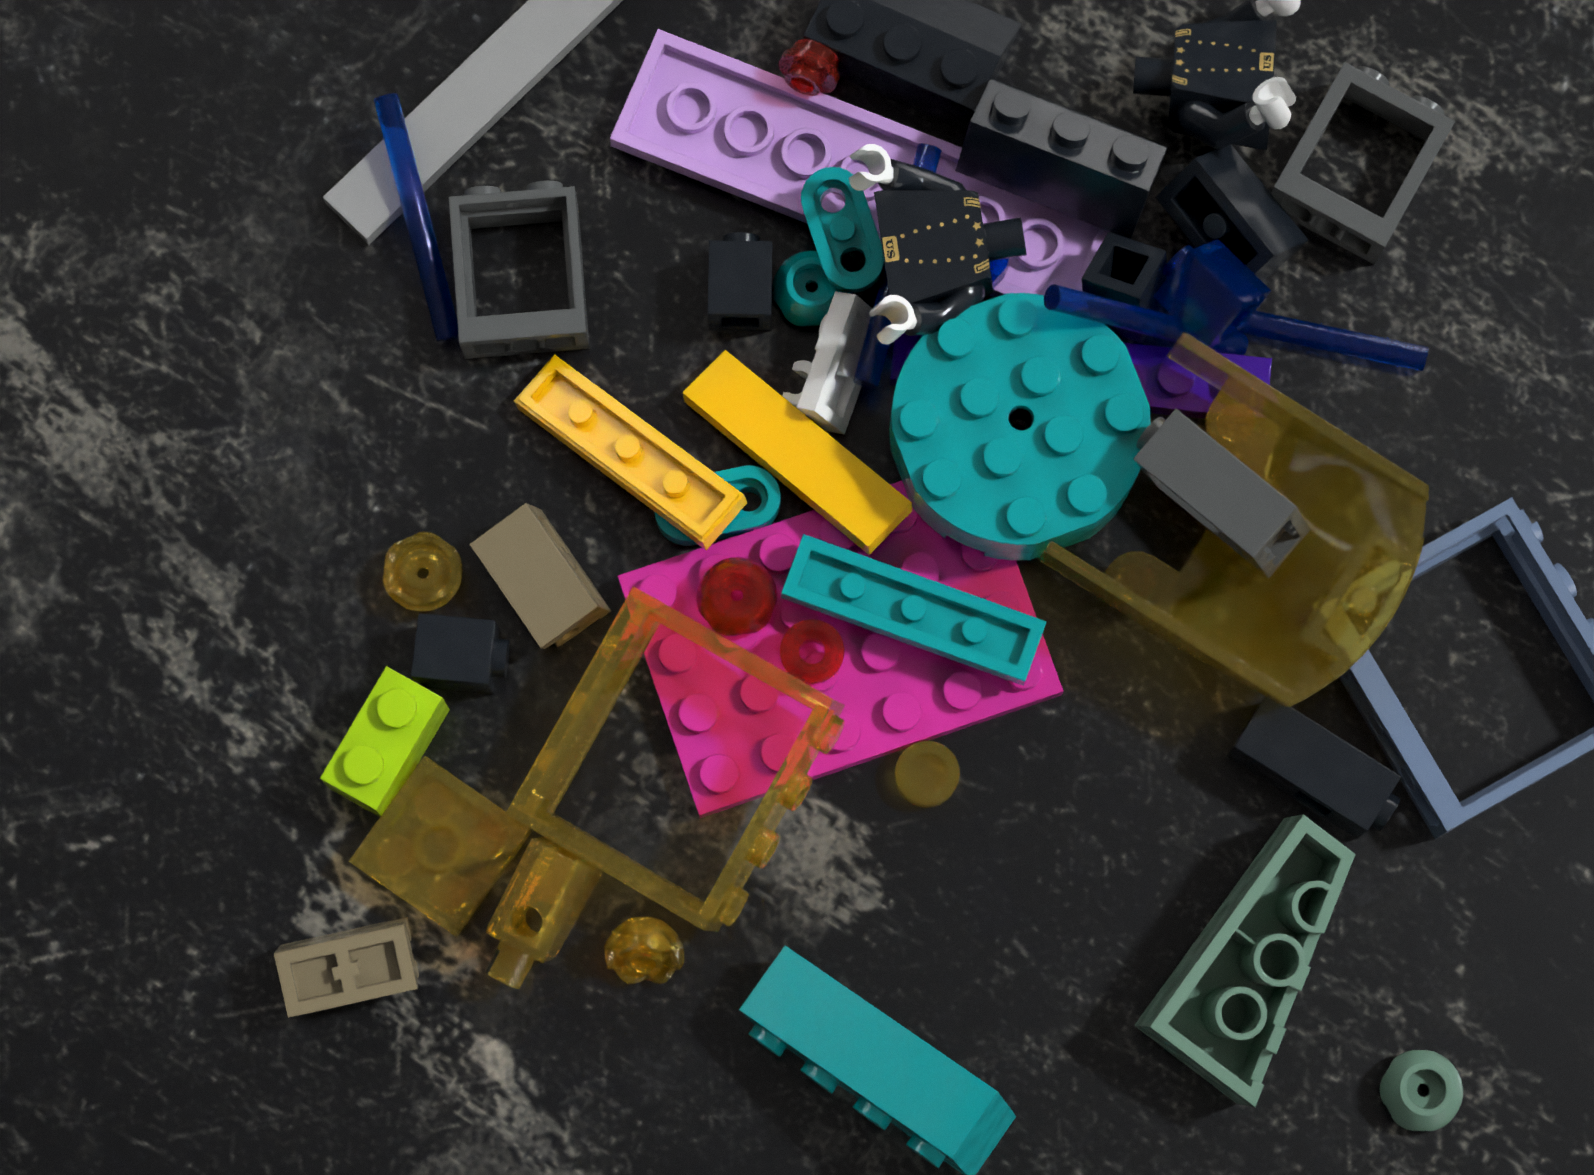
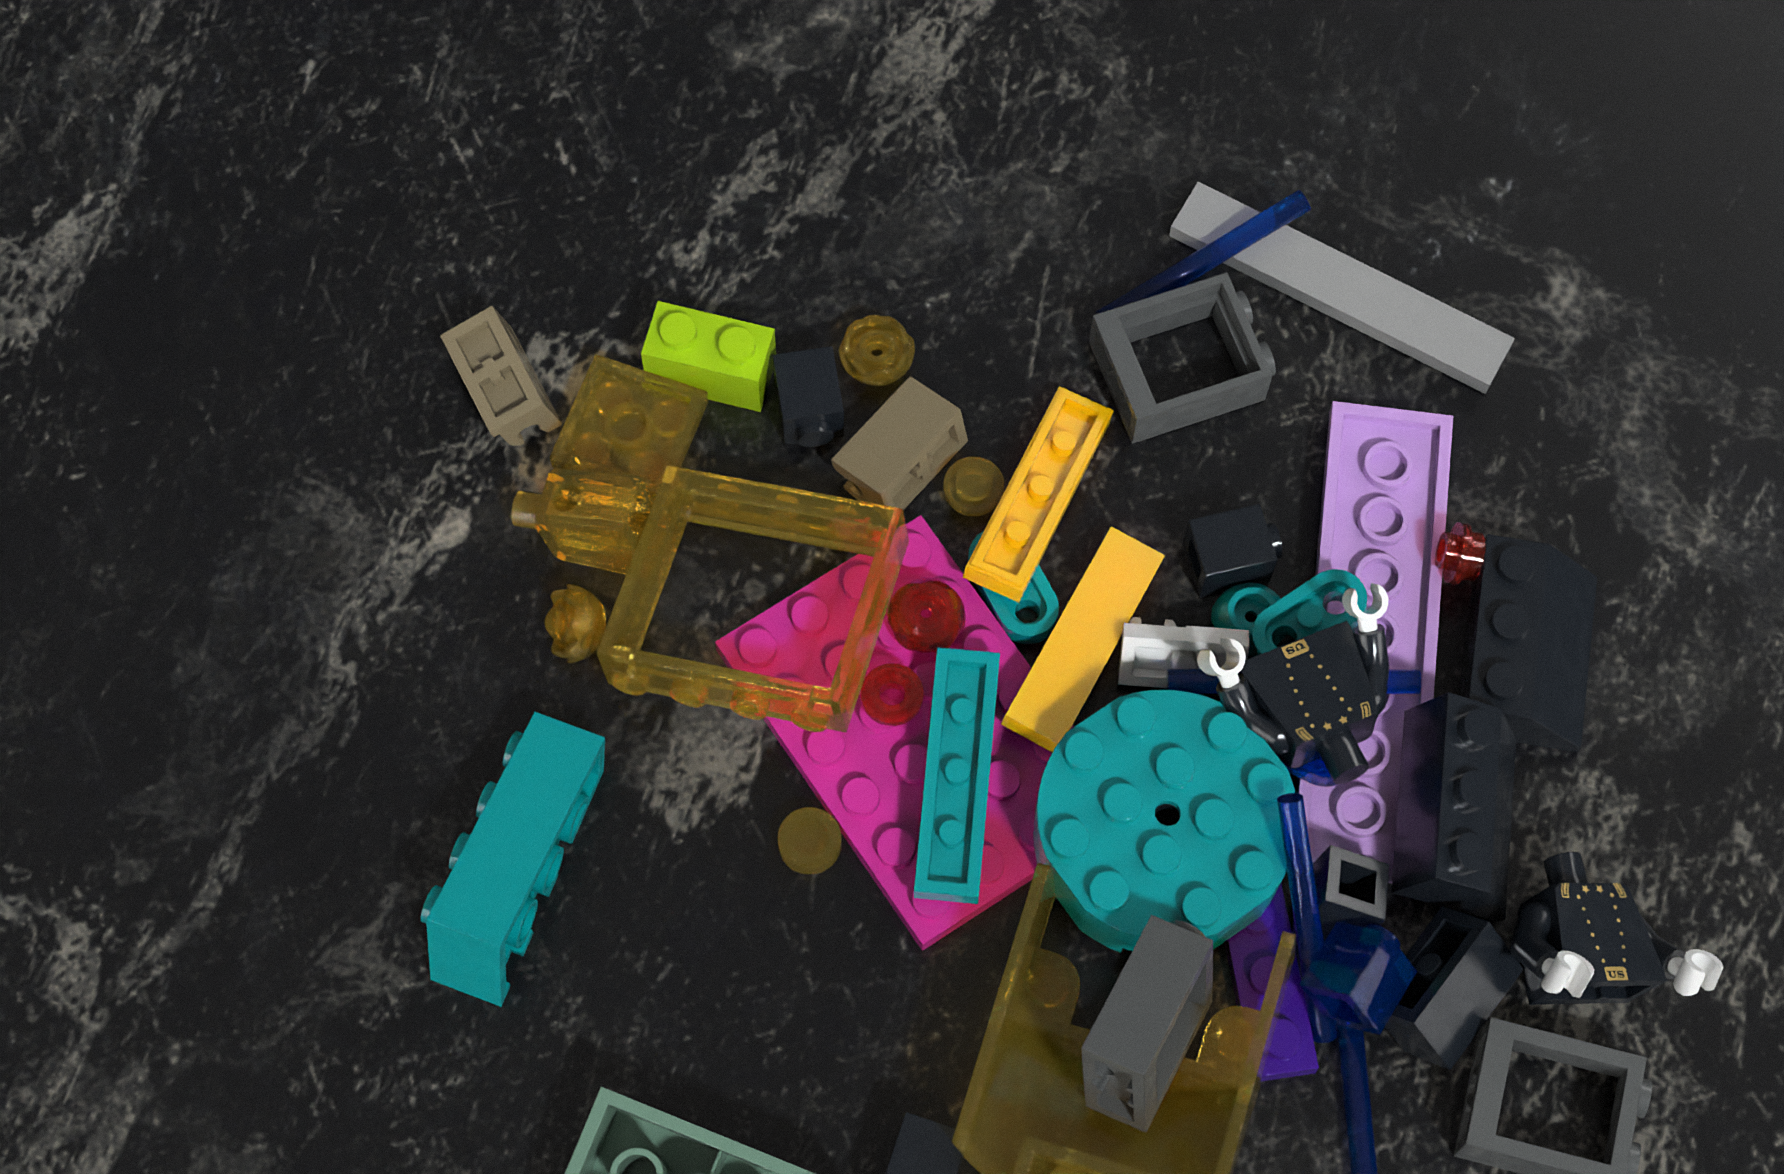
camera: 75 degrees right, 10 degrees down
(598, 515) = (973, 486): none -> clear yellow plate

